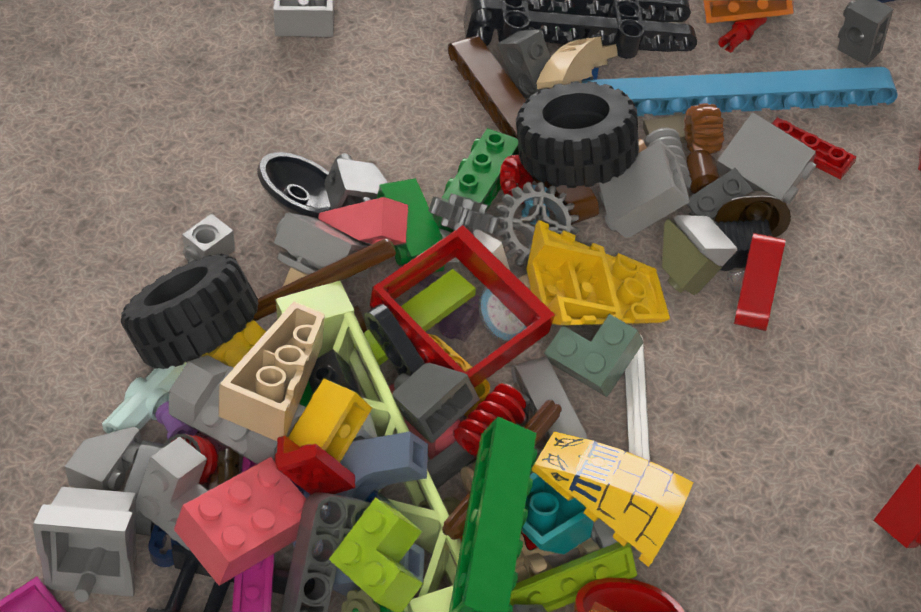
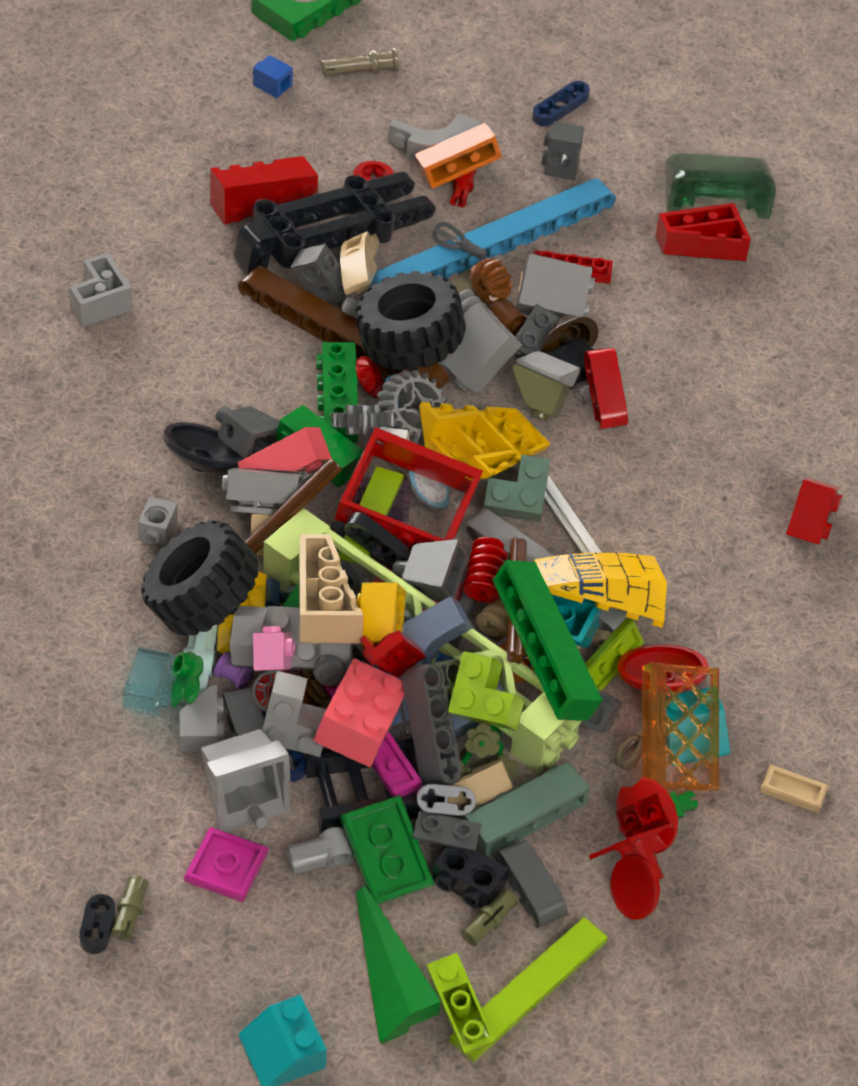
camera: 30 degrees left, 0 degrees up
(84, 398) = (149, 682): none -> clear light blue brick
(115, 398) = (186, 685): none -> green plate
(197, 413) = (273, 649): none -> bright pink brick
(246, 456) = (329, 670): none -> dark grey tile
(696, 83) = (464, 243): none -> dark grey piece

